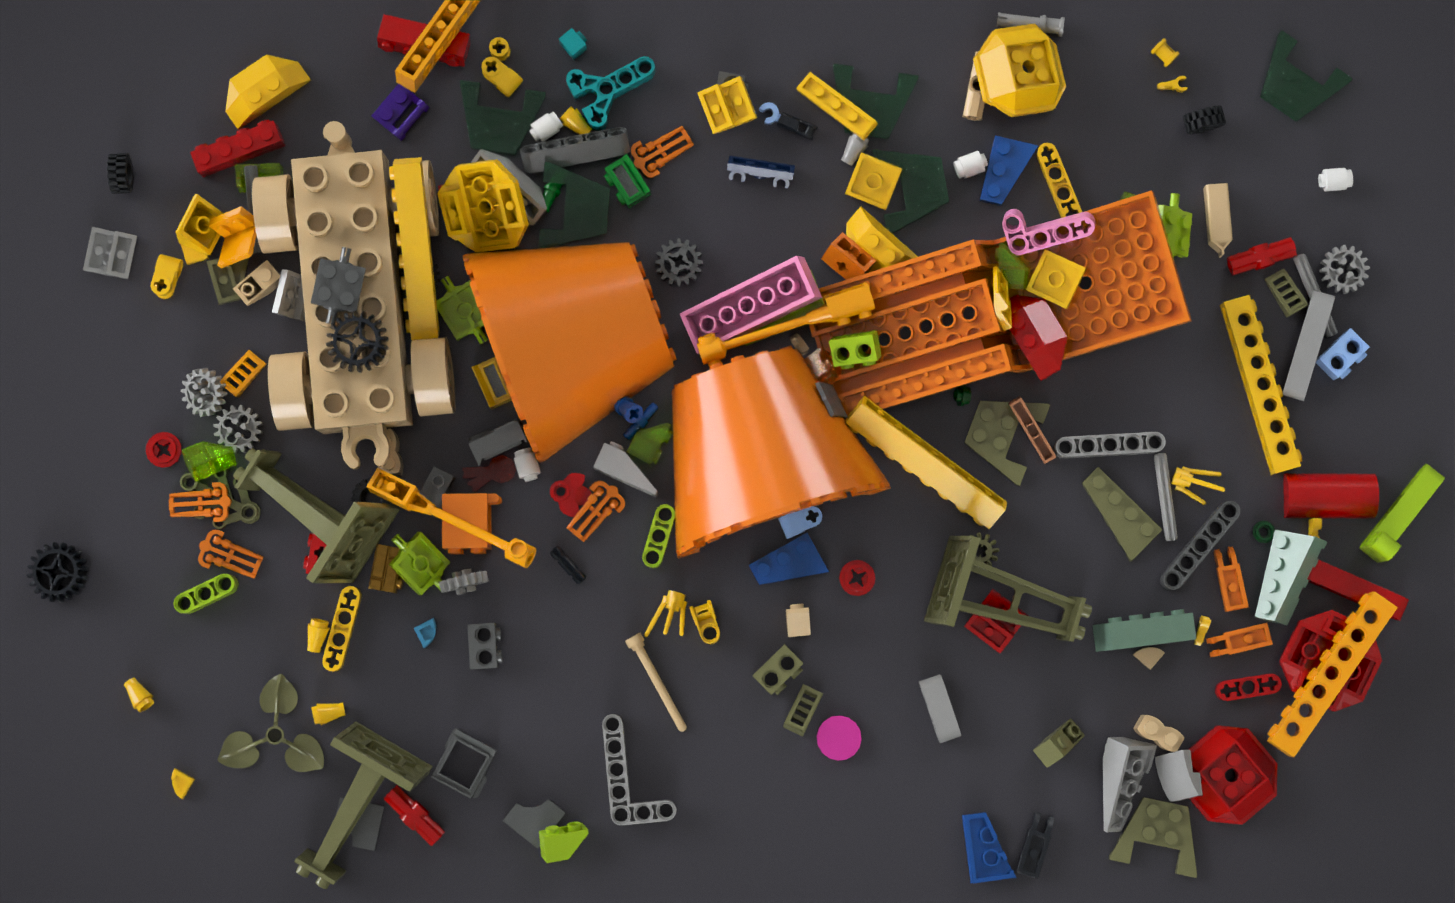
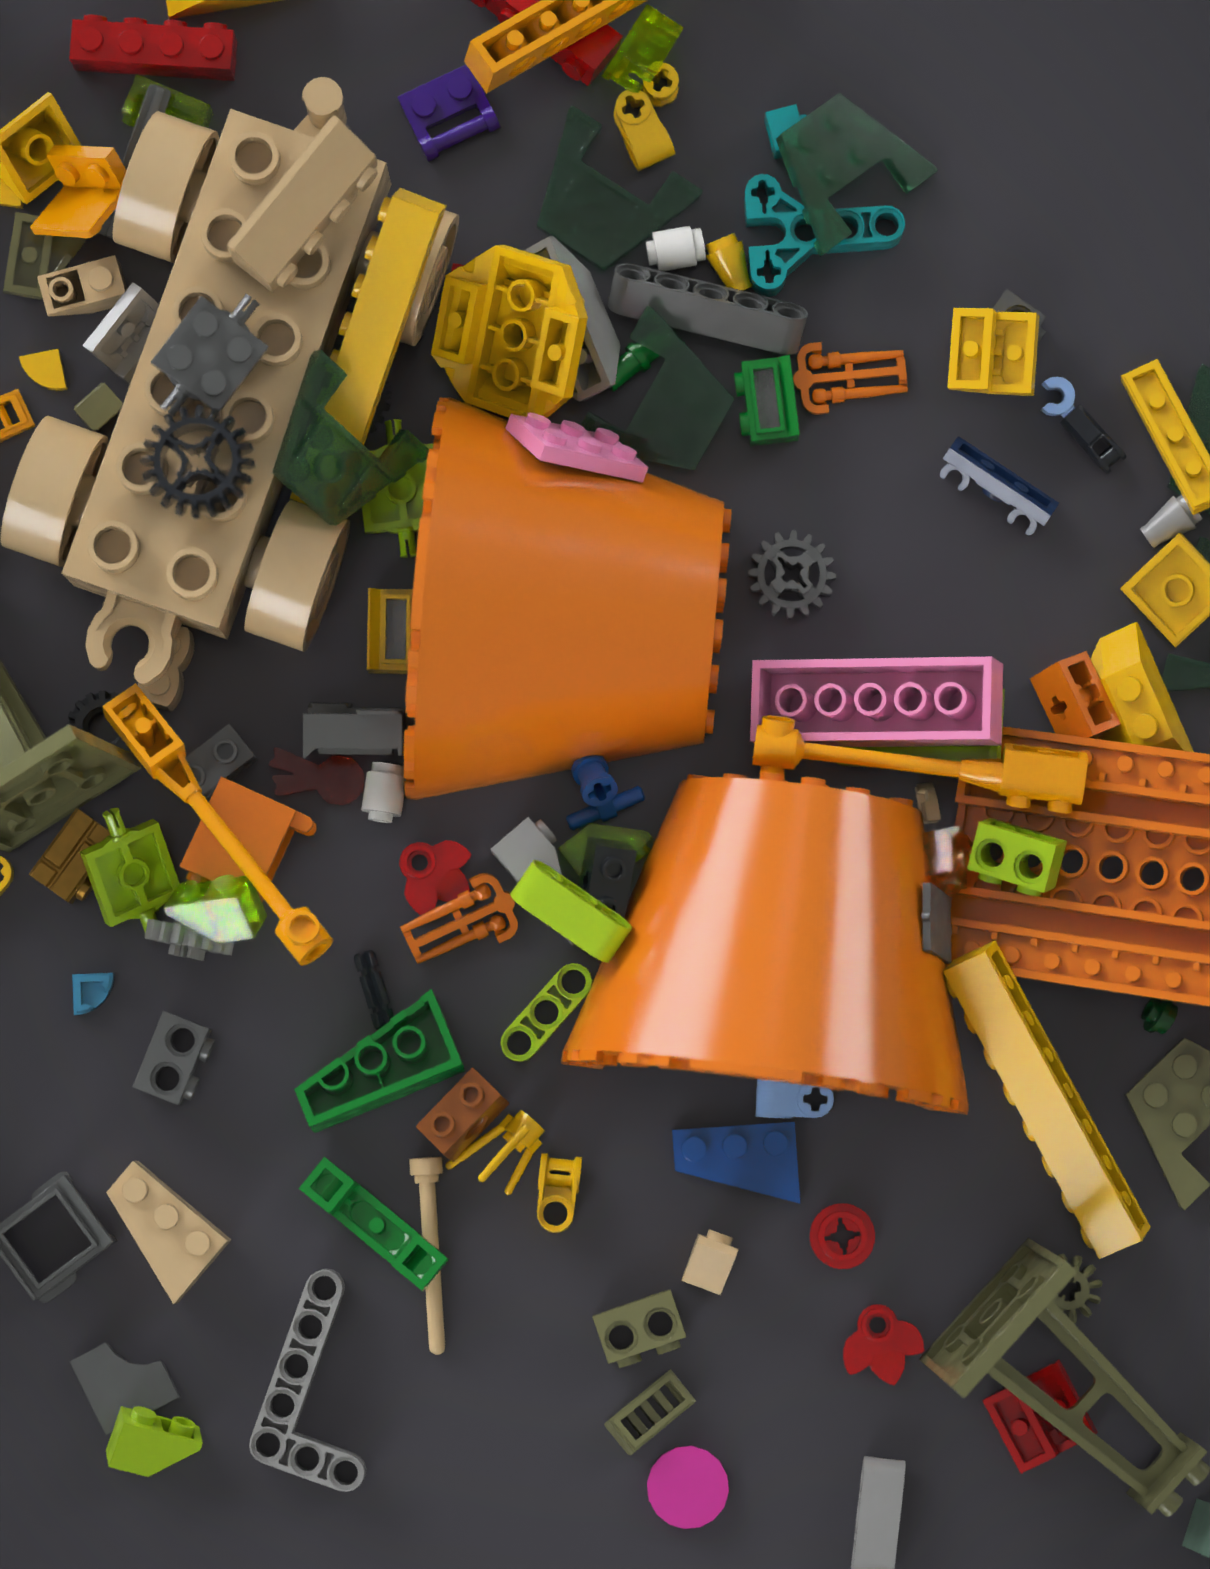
camera: 25 degrees right, 0 degrees up
(258, 333) = (45, 369): none -> yellow tile
(294, 339) = (98, 407): none -> olive slope
(350, 190) = (303, 205): none -> tan slope
(421, 312) = (326, 461): none -> clear green wing
(471, 560) = (219, 908): none -> clear neon green slope
(483, 35) = (643, 49): none -> clear neon green hinge
(521, 732) = (166, 1229): none -> tan wedge
(542, 248) = (576, 447): none -> bright pink plate
(590, 601) = (383, 1067): none -> green wedge
(601, 41) = (833, 150): none -> clear green wing
(622, 680) = (374, 1223): none -> green slope
(641, 606) = (462, 1114): none -> dark orange brick
(647, 478) = (571, 911): none -> lime beam
(658, 458) = (608, 872): none -> black brick
(904, 624) = (881, 1350): none -> red plate

